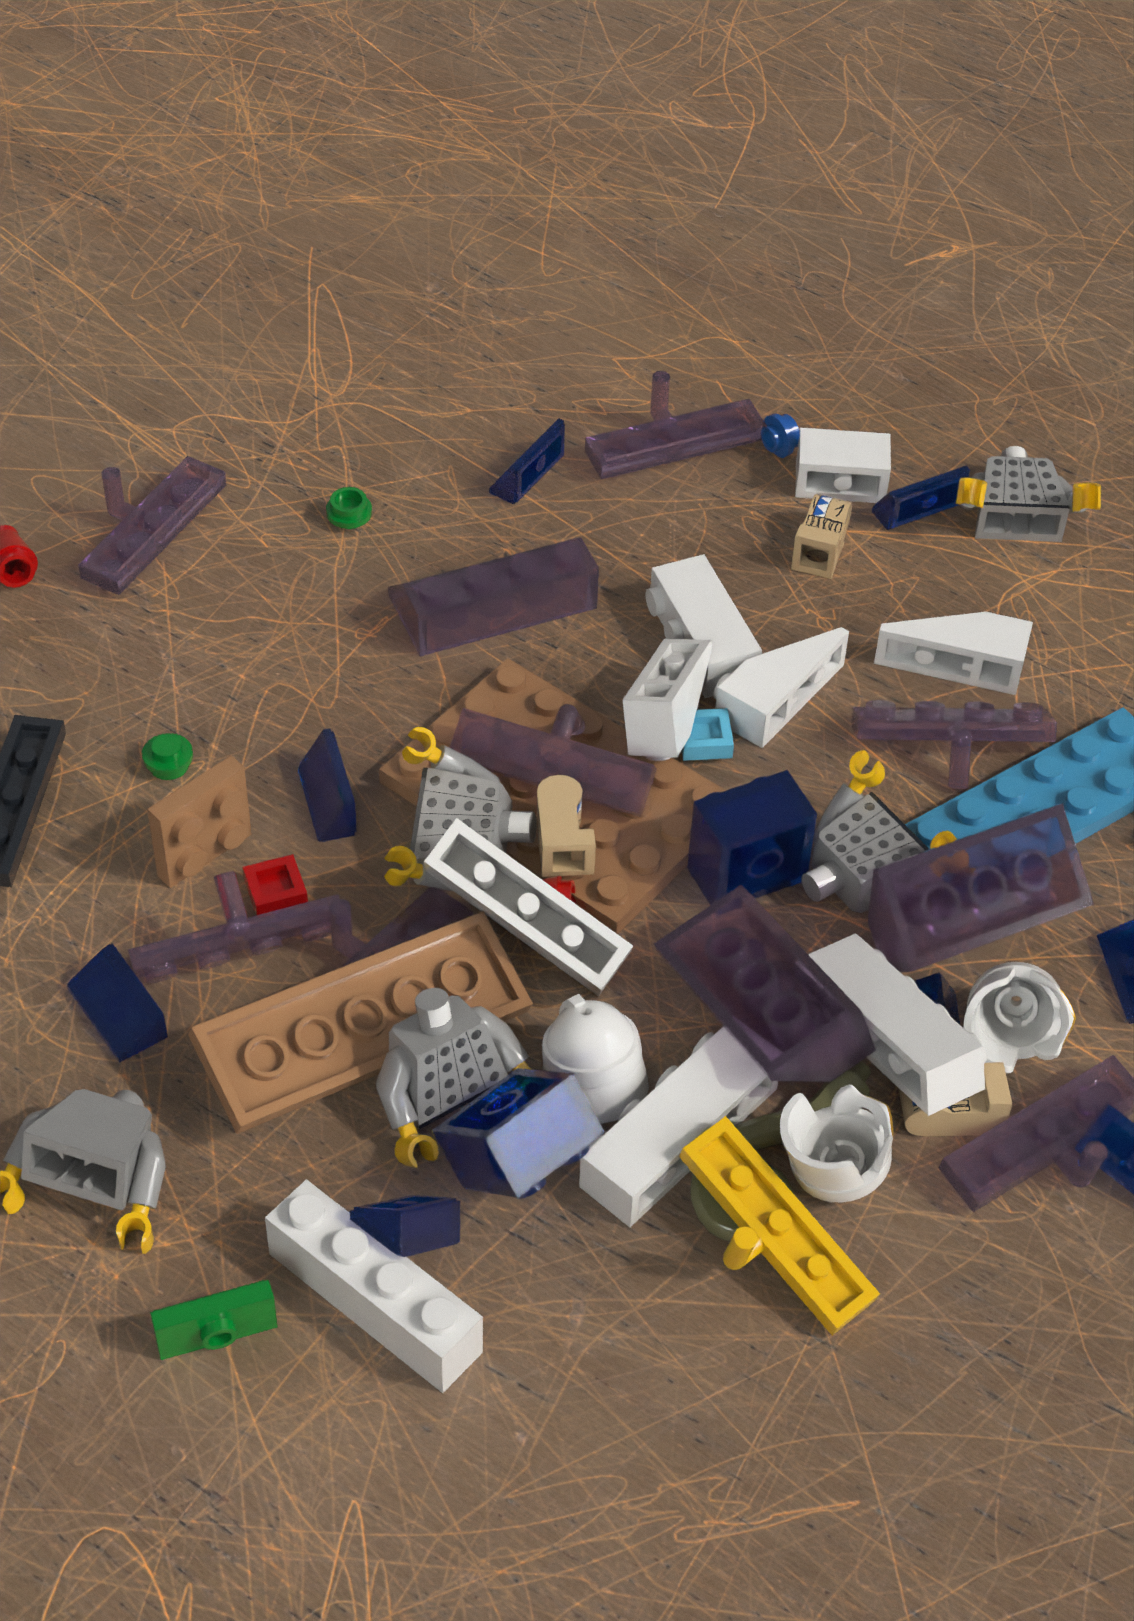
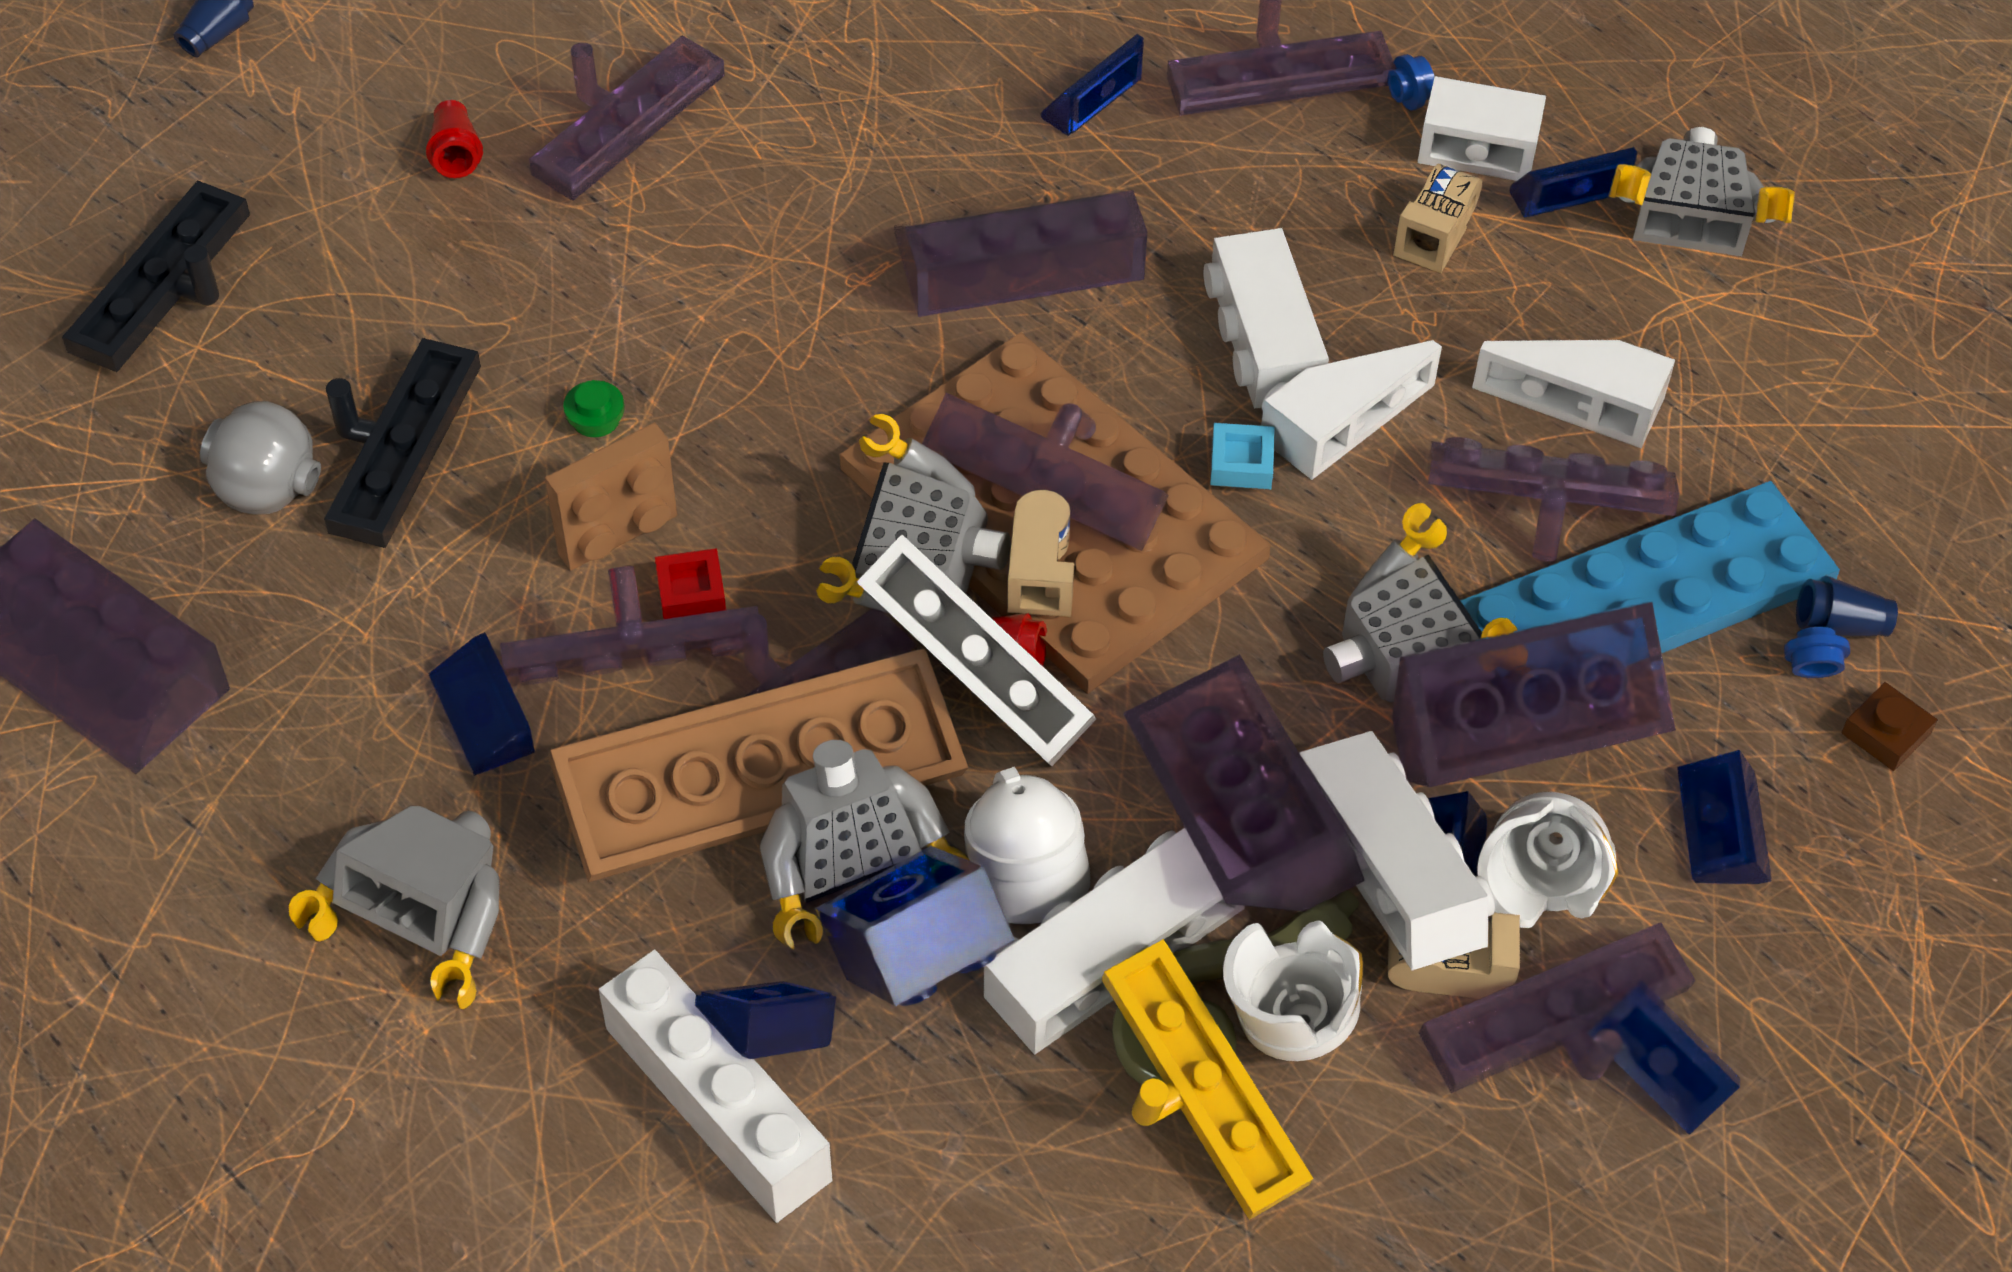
camera: 10 degrees right, 5 degrees up
(214, 1319) = (524, 1100): green plate -> none
(328, 789) = (774, 473): clear blue slope -> none
(348, 508) = (864, 121): green plate -> none
(665, 699) = (1196, 406): white slope -> none
(751, 837) = (1267, 596): clear blue brick -> none

